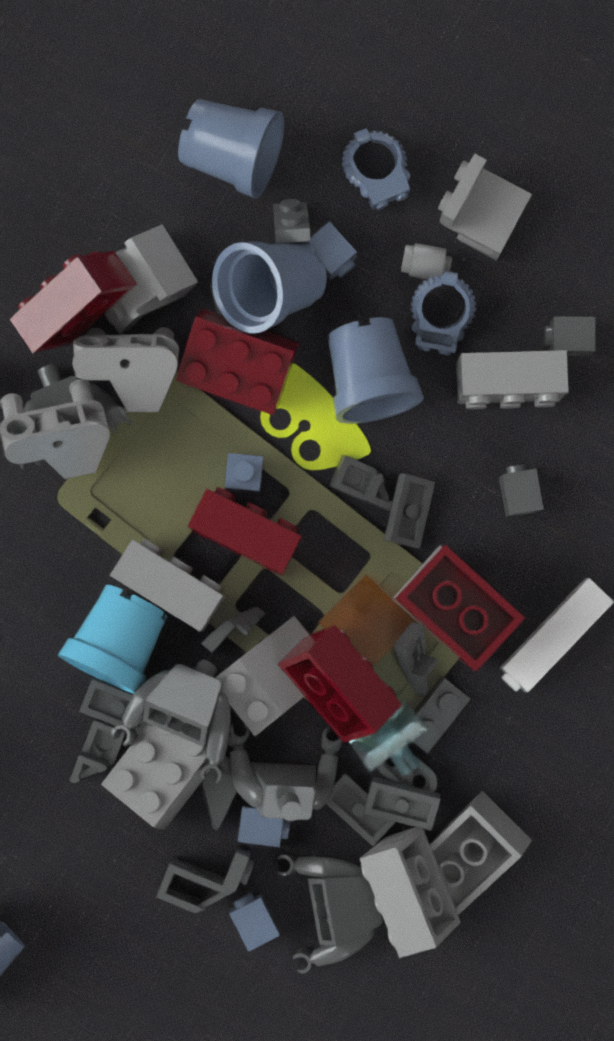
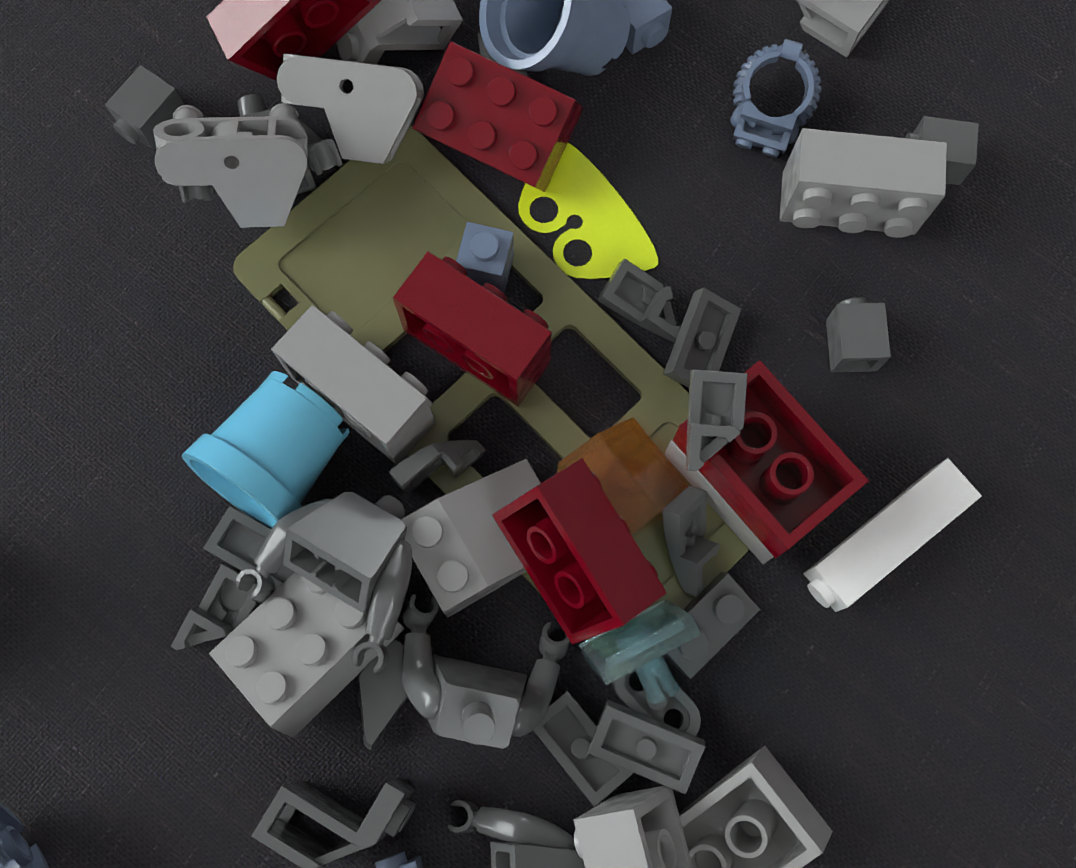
camera: 10 degrees right, 10 degrees down
(261, 830) = (433, 755): sand blue brick -> none
(371, 373) = (674, 154): sand blue piece -> none
(418, 588) = (714, 413): none -> dark grey slope
(425, 261) = (754, 33): light grey brick -> none

